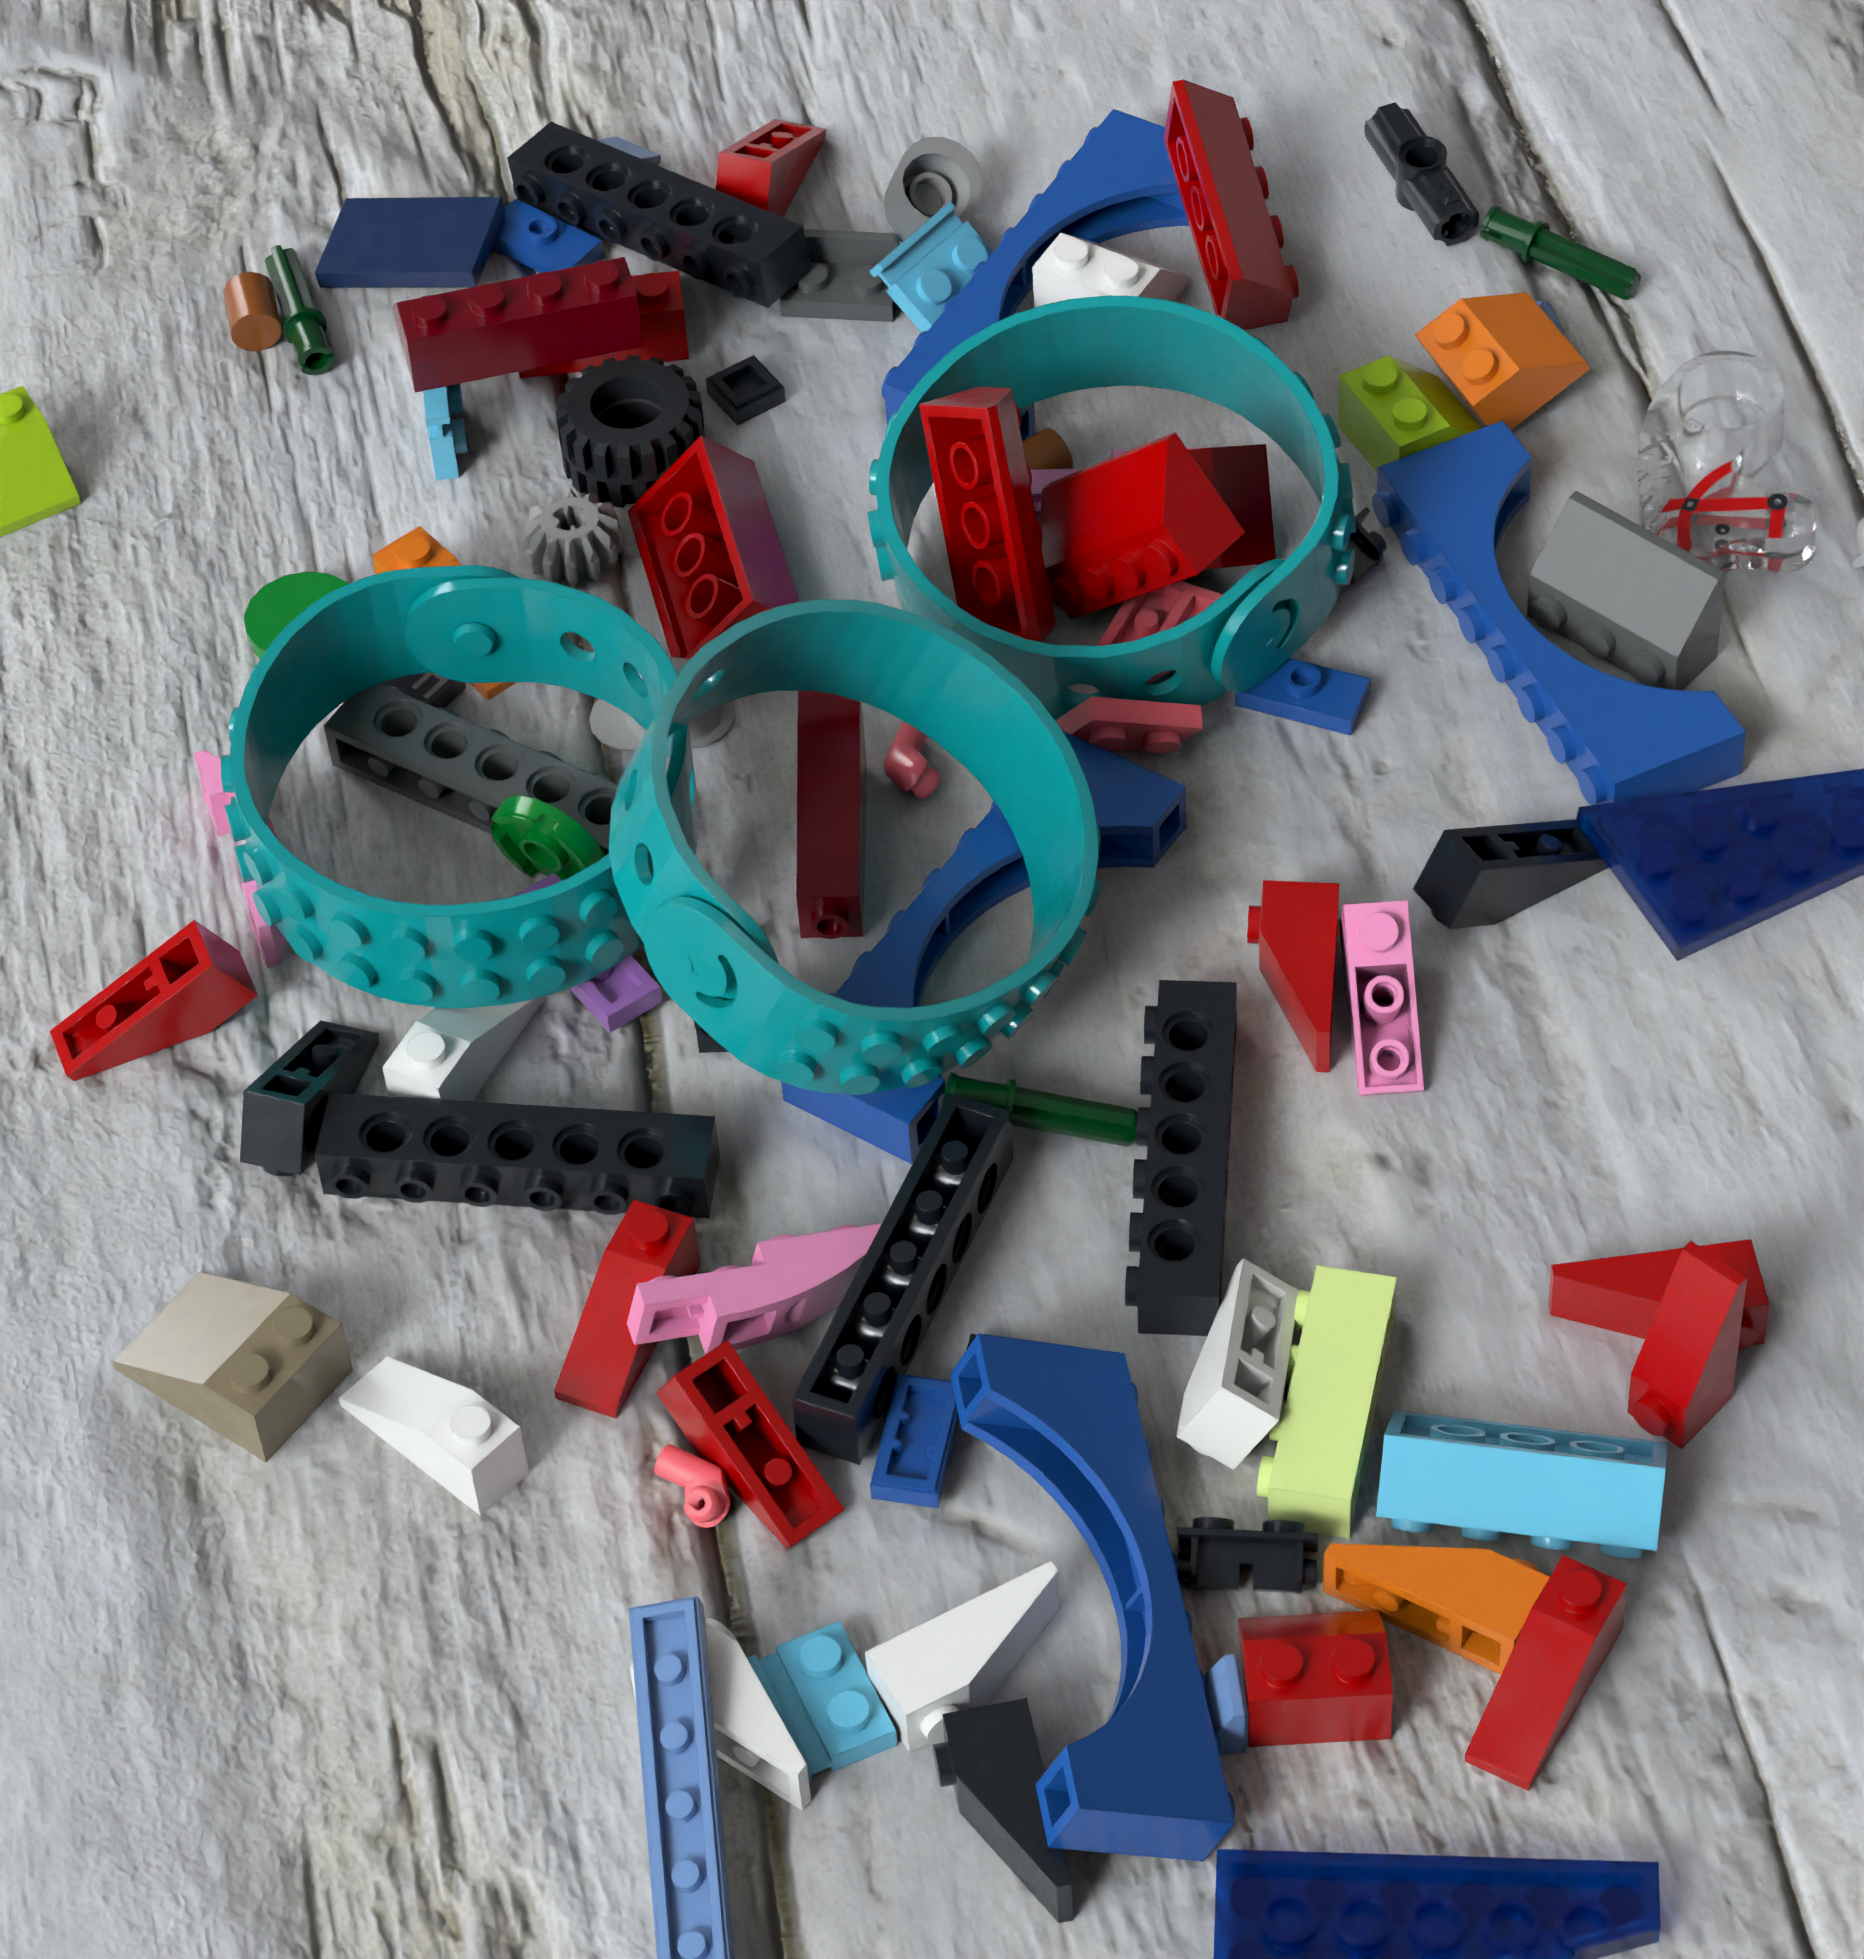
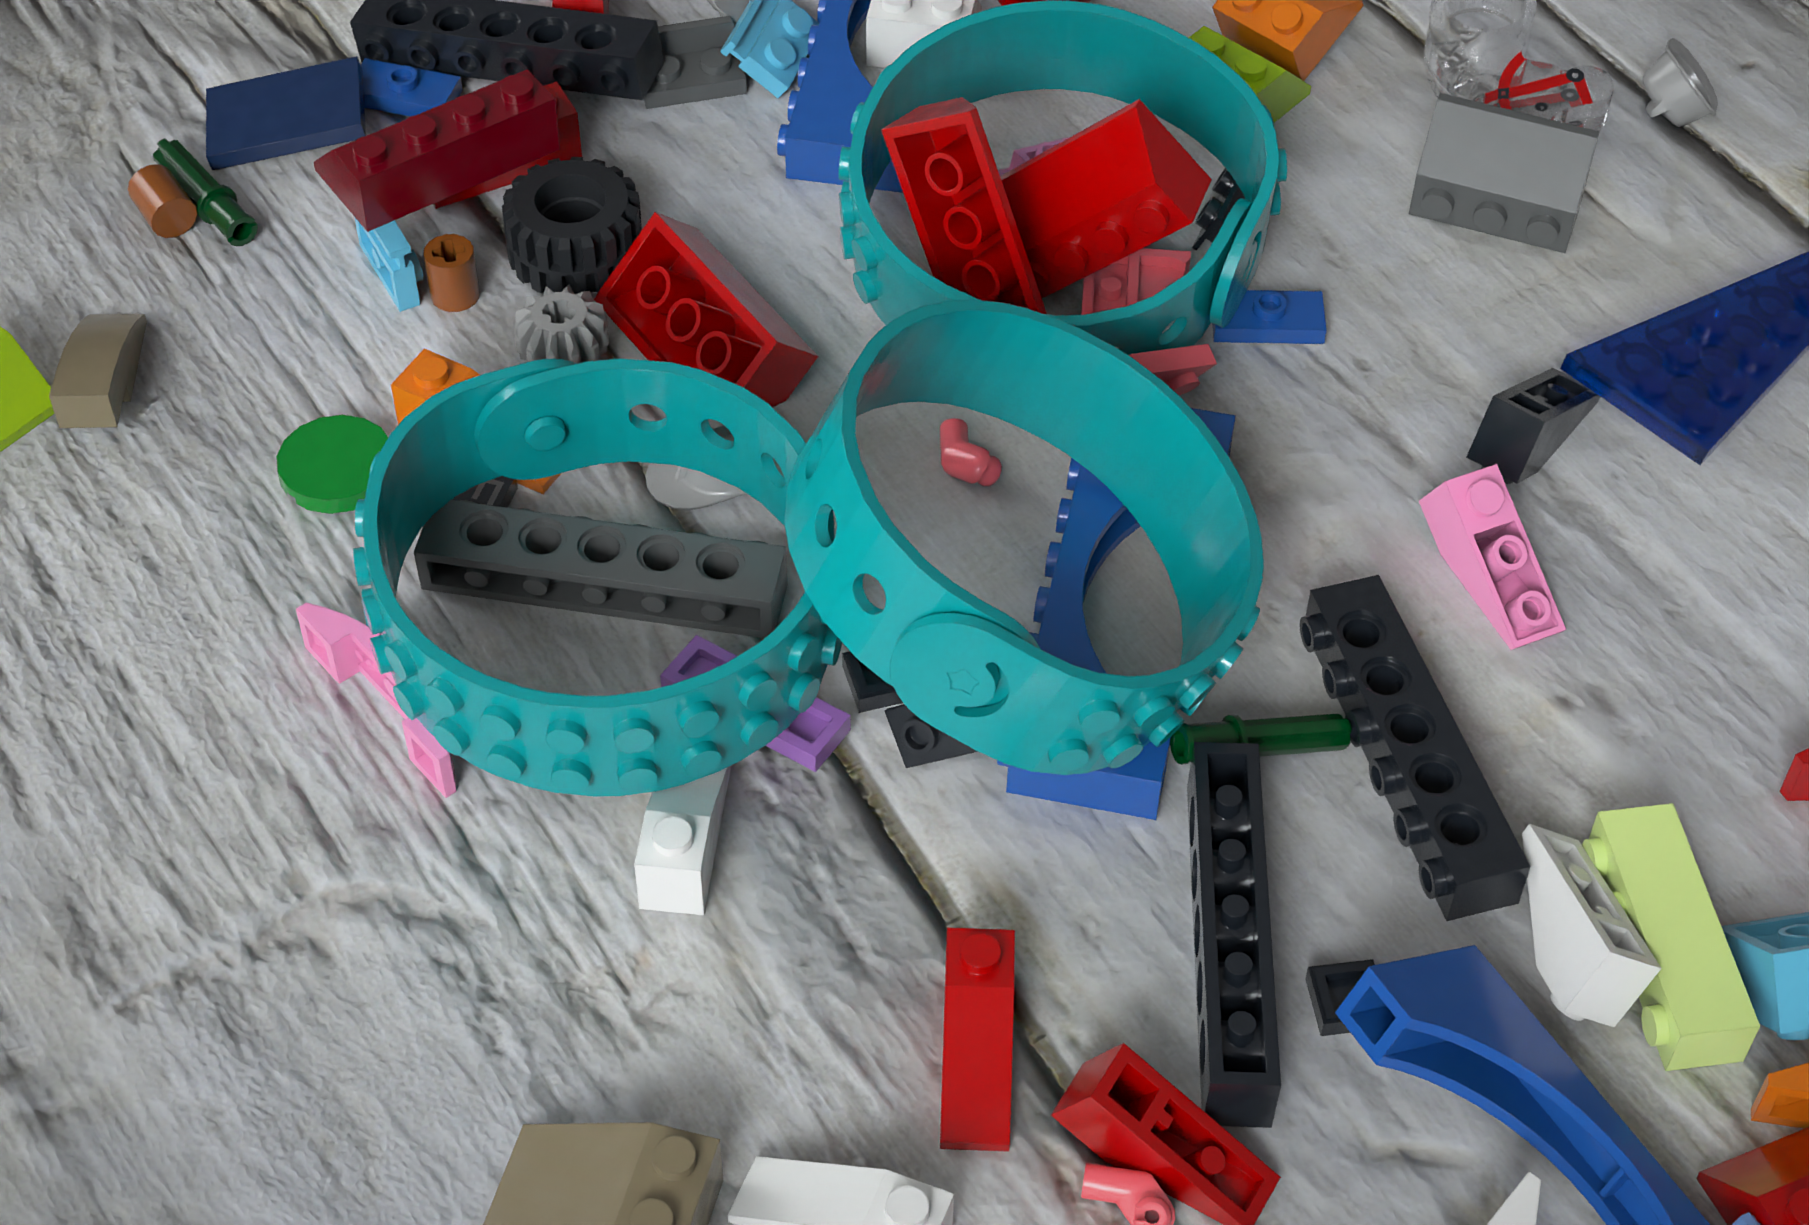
camera: 25 degrees left, 0 degrees up
(121, 473) = (97, 370): none -> dark tan slope
(158, 1003) = (358, 865): red slope -> none
(289, 1099) = (555, 917): black slope -> none
(494, 452) = (451, 272): none -> dark orange piece
(516, 1155) = (762, 900): black brick -> none
(542, 838) = (683, 604): green tile -> none
(745, 390) = (653, 173): black tile -> none
(780, 1291) = (1109, 988): bright pink slope -> none
(830, 816) = (926, 496): dark red slope -> none
(916, 1442) = (1320, 1089): blue plate -> none
(1274, 1552) = (1705, 1098): black hinge -> none
(1299, 956) = (1410, 545): red slope -> none
(1609, 731) = (1547, 289): blue arch -> none

